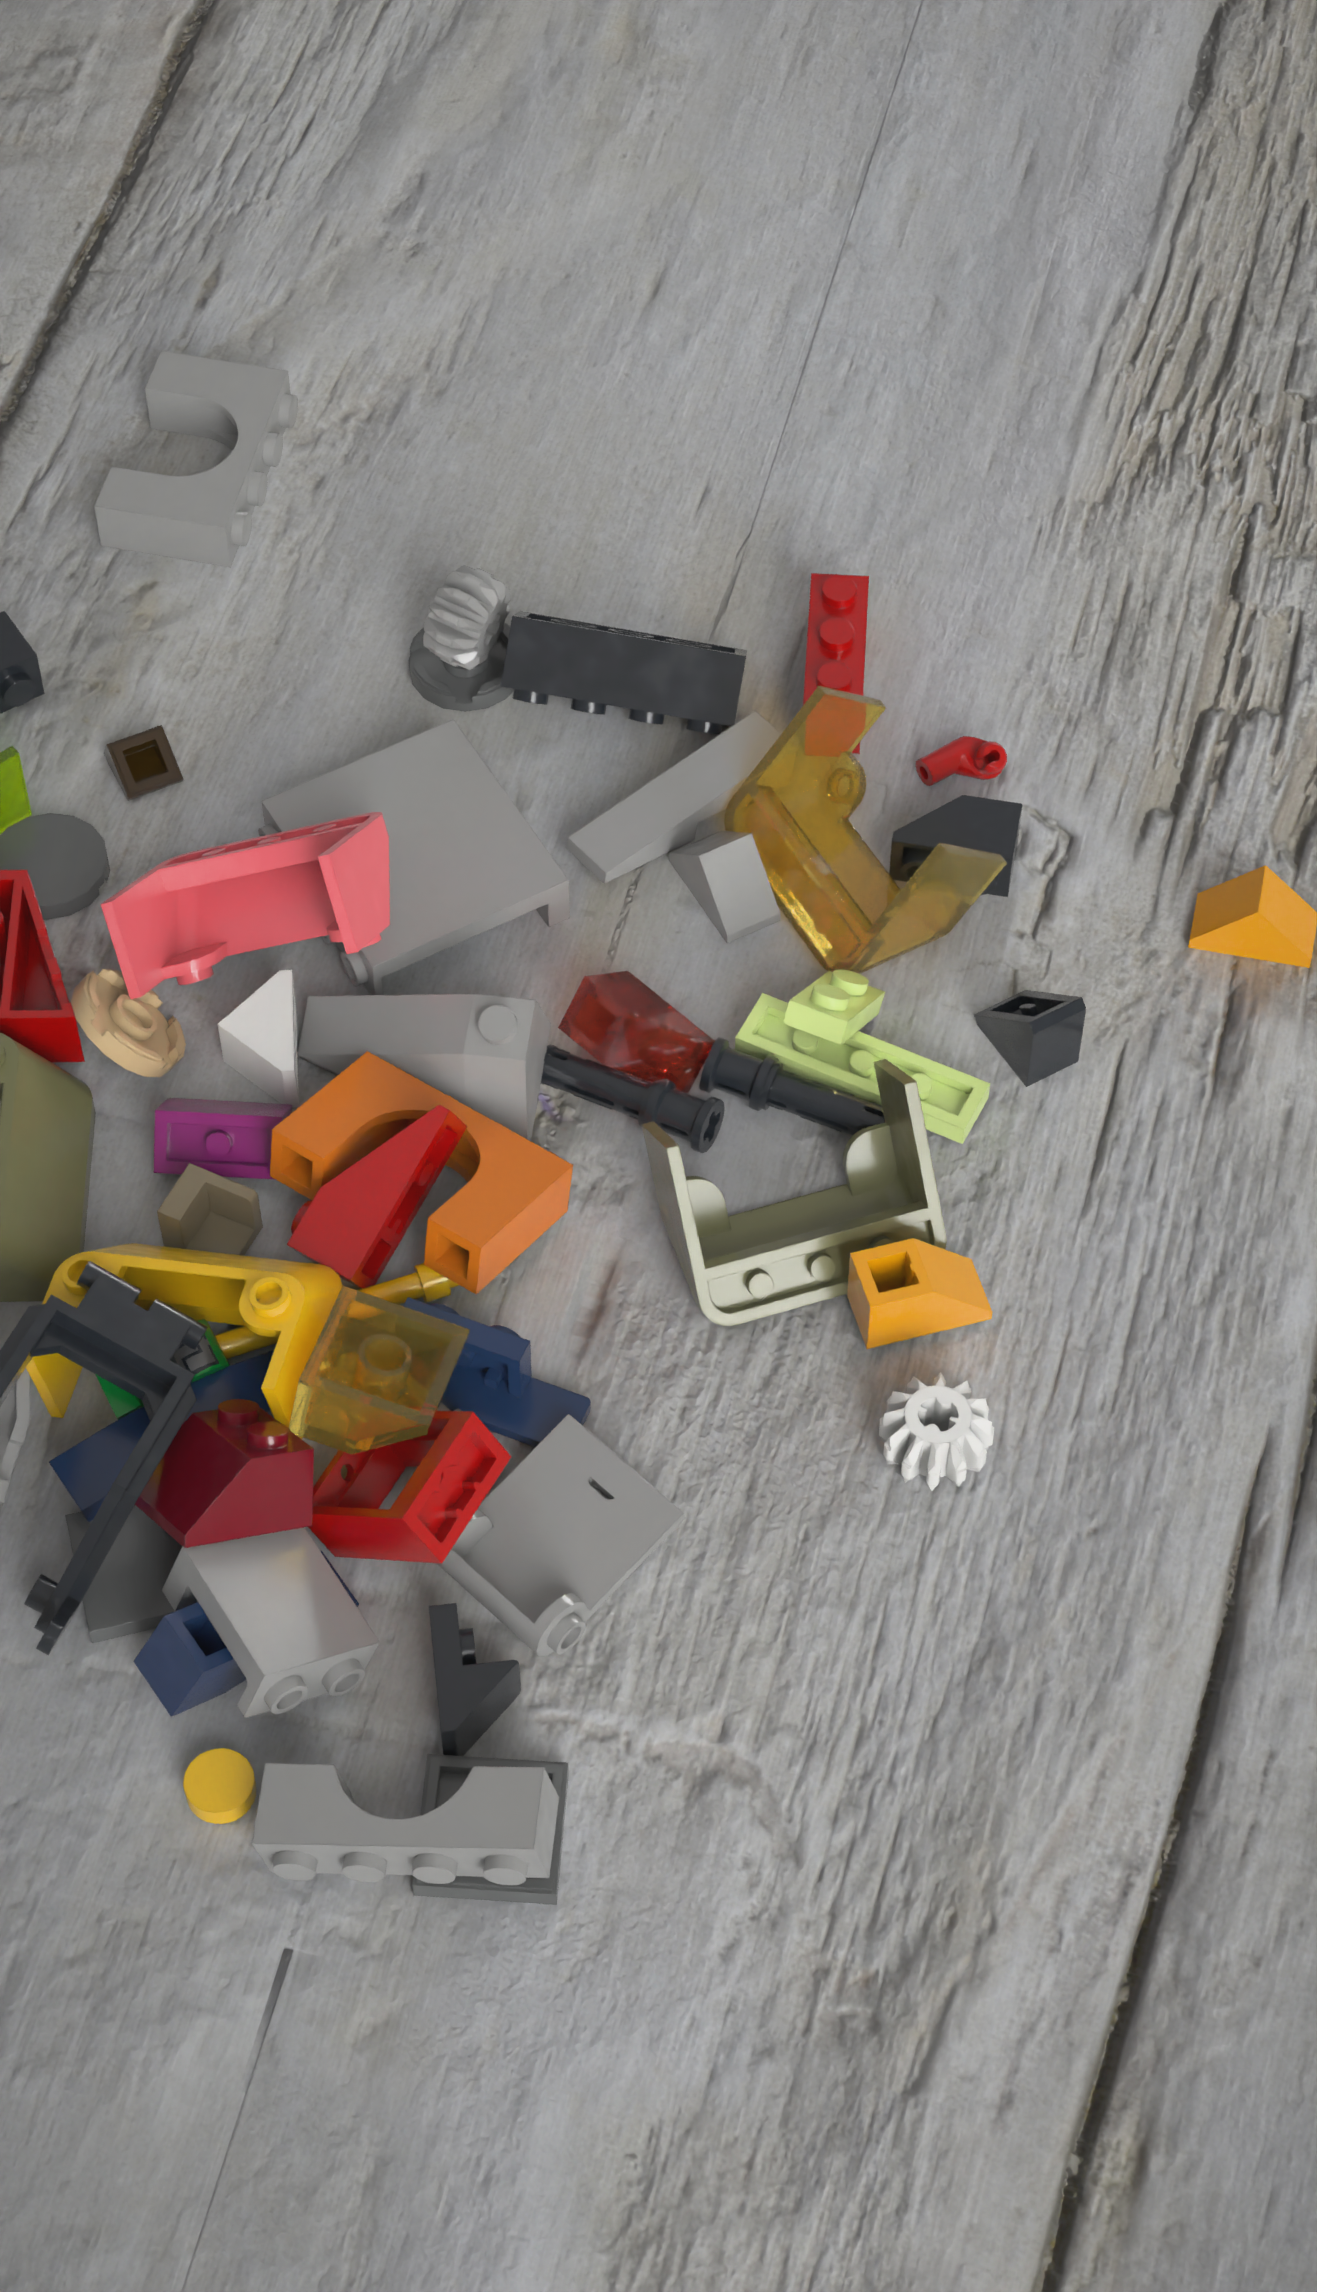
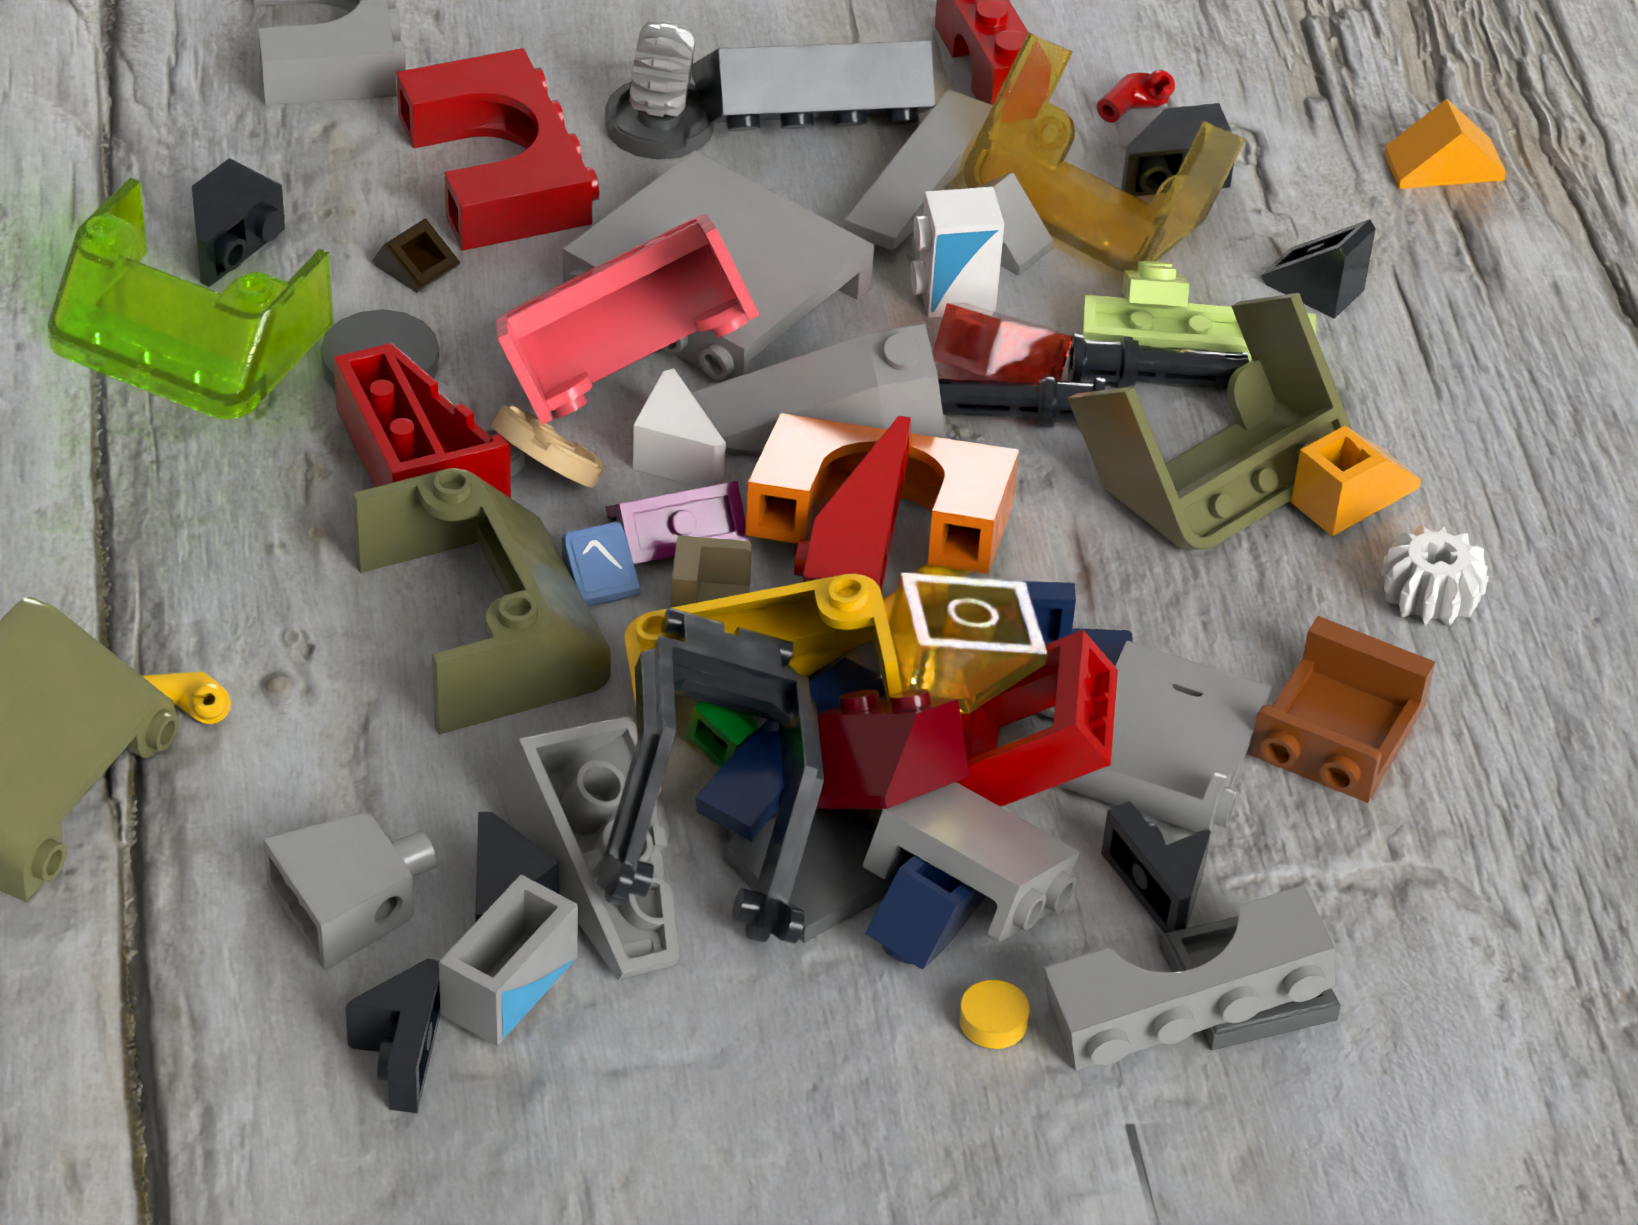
camera: 25 degrees left, 10 degrees down
(121, 1165) = (600, 563): none -> medium blue slope
(302, 714) = (509, 100): none -> red arch
(647, 911) = (958, 249): none -> white brick
(751, 1562) = (1344, 710): none -> dark orange panel

